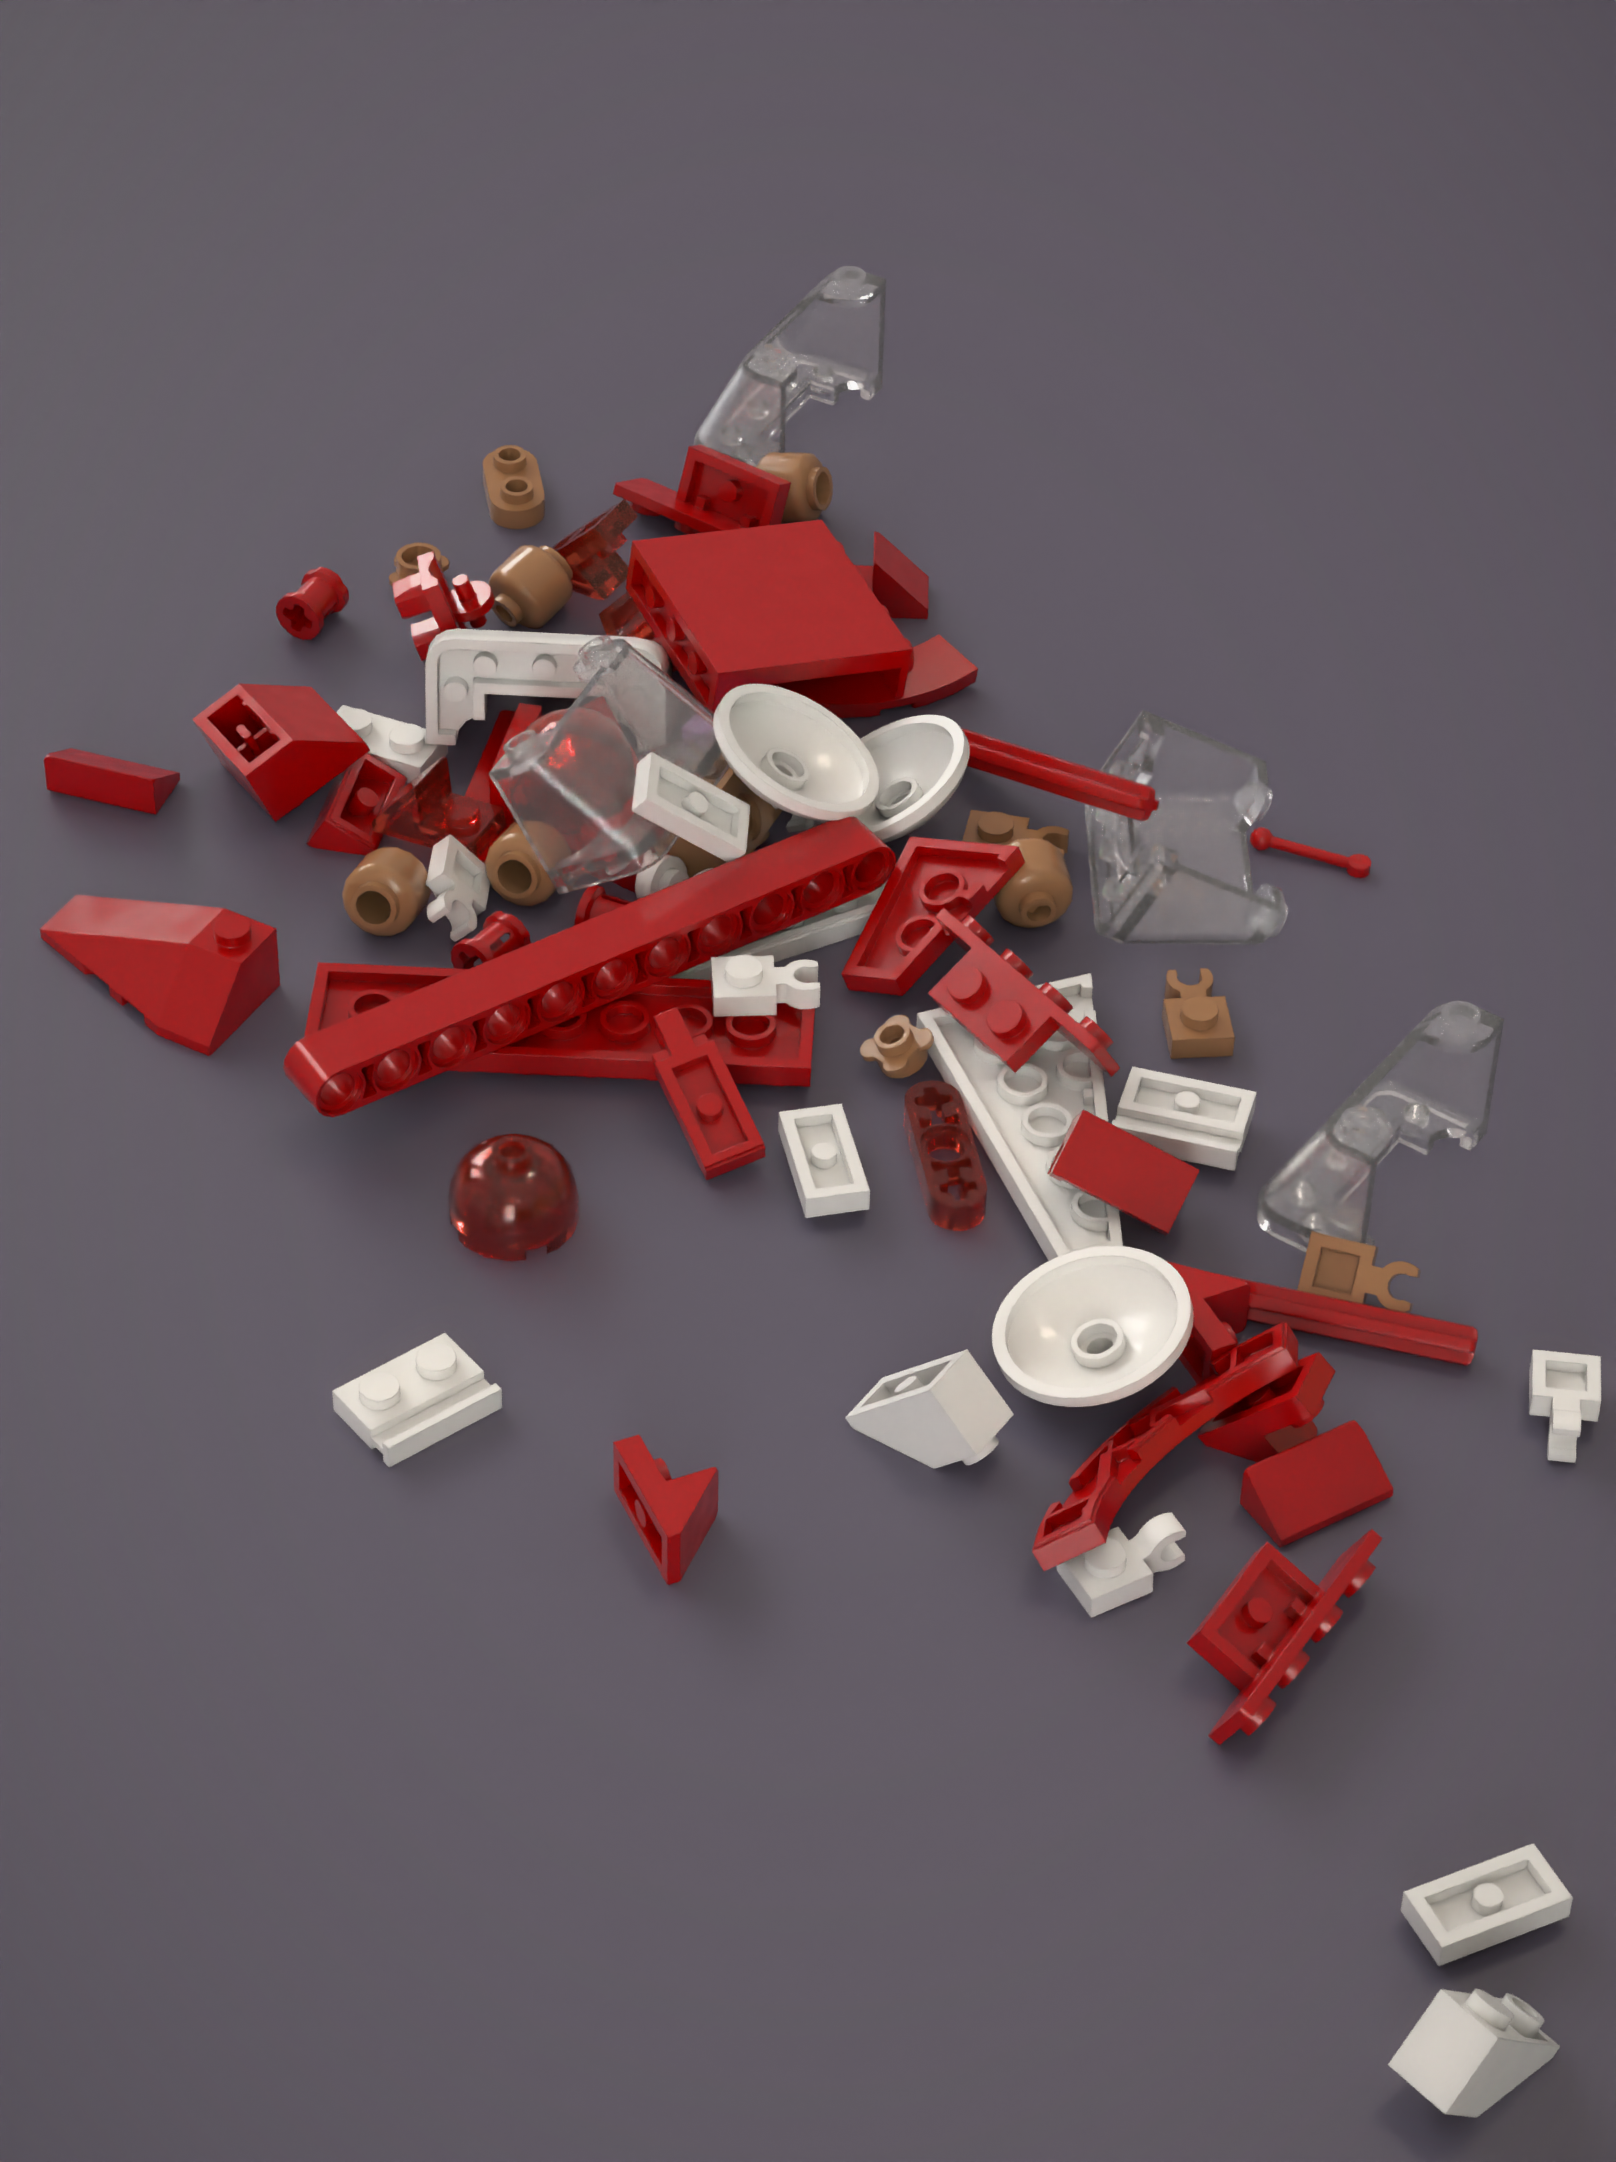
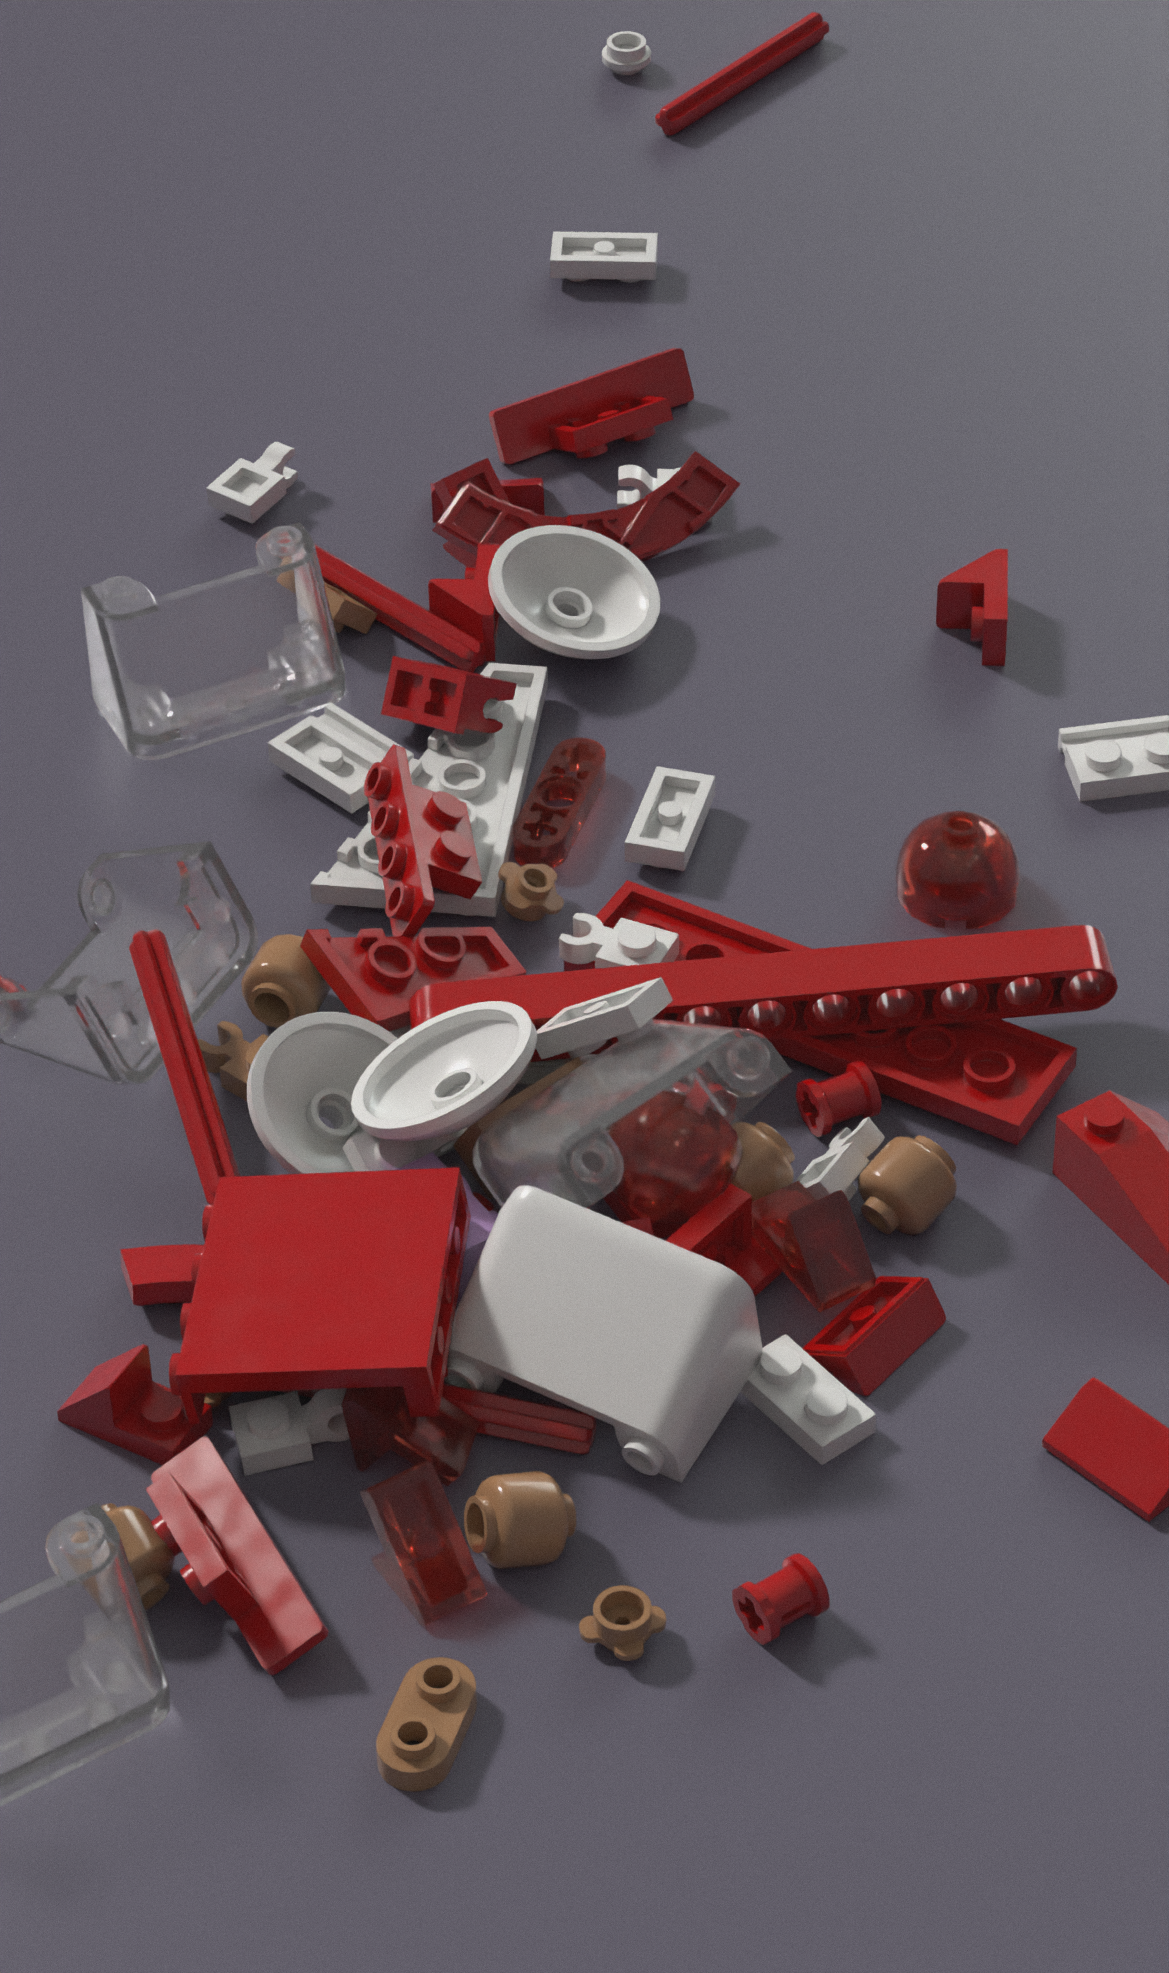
camera: 150 degrees left, 0 degrees up
(279, 742) = (933, 1367): red slope -> none
(450, 608) = (659, 1484): red hips -> none
(704, 1098) = (743, 877): red hinge -> none
(935, 1412) = (737, 604): white slope -> none
(1194, 1020) = (249, 844): medium nougat plate -> none
(1472, 2050) = (683, 190): white slope -> none

